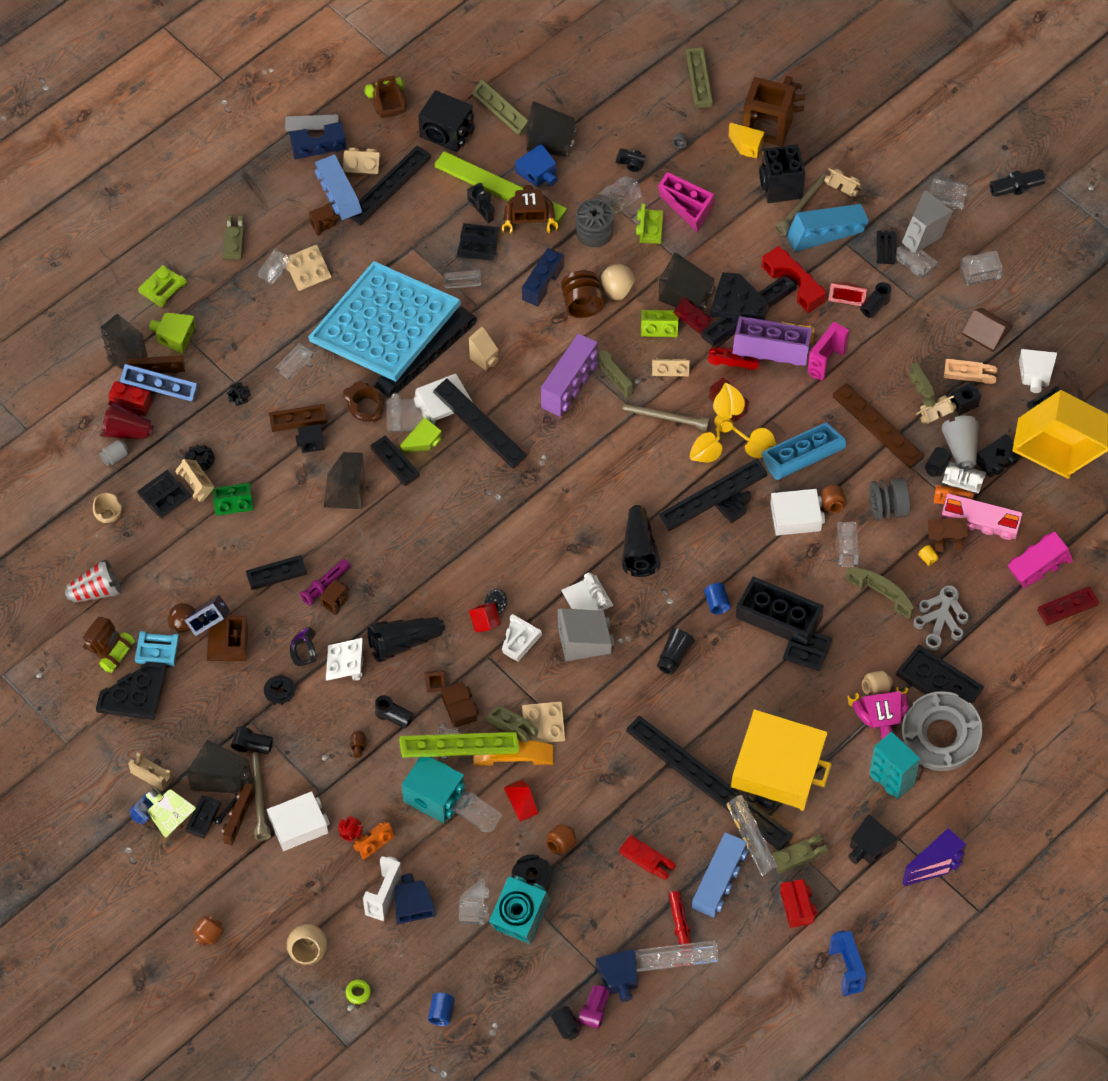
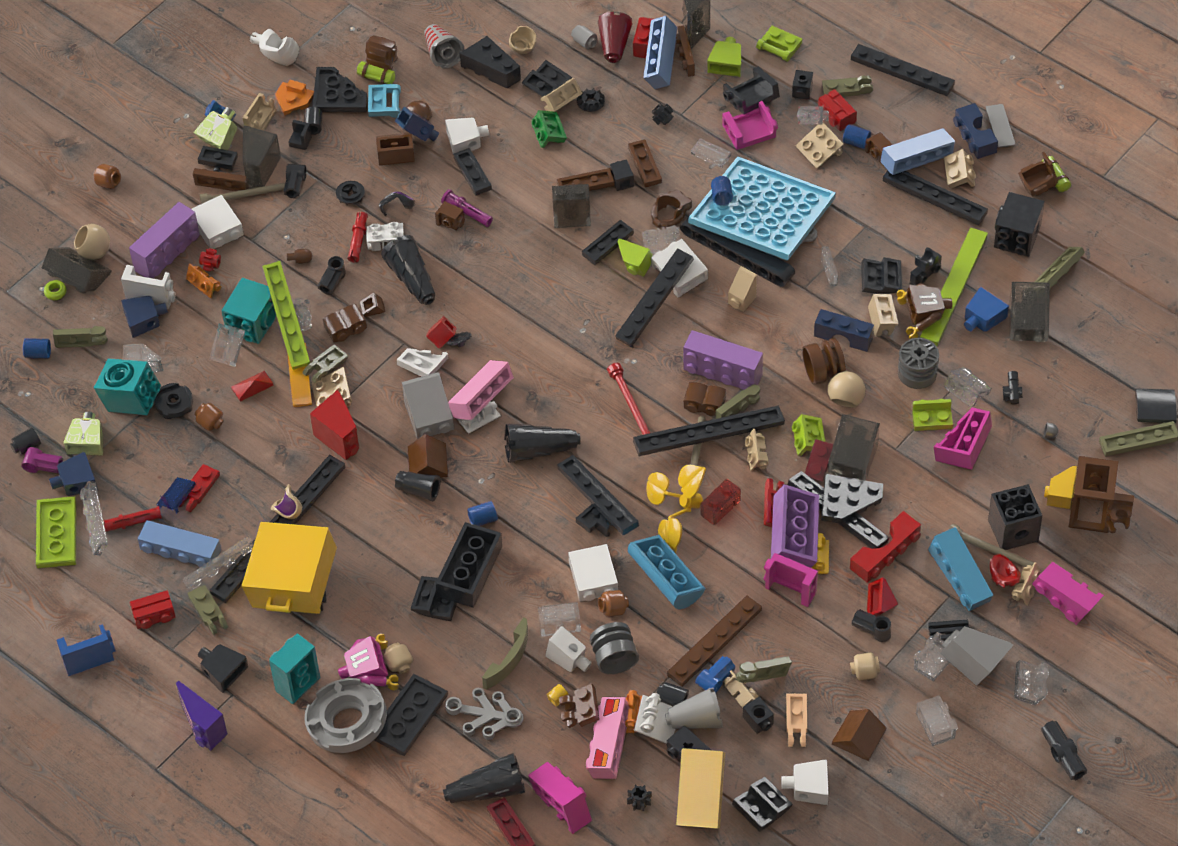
camera: 85 degrees right, 5 degrees down
(56, 751) = (276, 49): none -> white piece
(129, 738) = (293, 96): none -> orange plate
(130, 539) = (491, 61): none -> black wedge
(171, 718) = (314, 116): none -> black brick
(191, 731) = (301, 135): none -> black panel
(221, 190) = (902, 70): none -> black plate
(225, 575) = (464, 134): none -> white torso
(226, 271) = (802, 84): none -> black brick
(226, 313) = (748, 94): none -> black panel
(262, 246) = (840, 111): none -> red brick
(268, 322) = (751, 127): none -> dark pink panel
(304, 235) = (856, 136): none -> blue piece
(312, 472) = (596, 179): none -> reddish brown plate
(321, 868) = (164, 241): none -> medium lavender brick
(337, 967) = (74, 269): none -> clear smoke slope
(343, 686) = (359, 231): none -> red pin
(367, 344) = (721, 190): none -> blue piece
(431, 963) = (79, 337): none -> olive hinge
(528, 244) = (882, 313): none -> tan hinge
(559, 469) = (616, 372): none -> piece
(567, 962) = (84, 436): none -> yellowish green torso
(574, 582) = (480, 390): none -> bright pink brick
(597, 714) = (335, 426): none -> red slope
(605, 399) = (704, 398): none -> reddish brown brick
(641, 645) = (428, 456): none -> reddish brown slope
(647, 398) = (708, 430): none -> black plate
(655, 875) = (176, 494): none -> clear blue piece
(664, 60) = (1156, 405): none -> black slope
(684, 997) = (56, 532): none -> lime tile
(693, 763) = (289, 506): none -> piece
(831, 196) = (1004, 571): none -> red hat
(866, 150) = (1066, 593): none -> dark pink wedge
(888, 534) = (567, 651): none -> white torso
(921, 310) = (865, 666): none -> tan head
(921, 430) = (716, 674): none -> blue piece
(1023, 608) = (491, 781): none -> black cone
(1044, 500) = (643, 801): none -> black gear

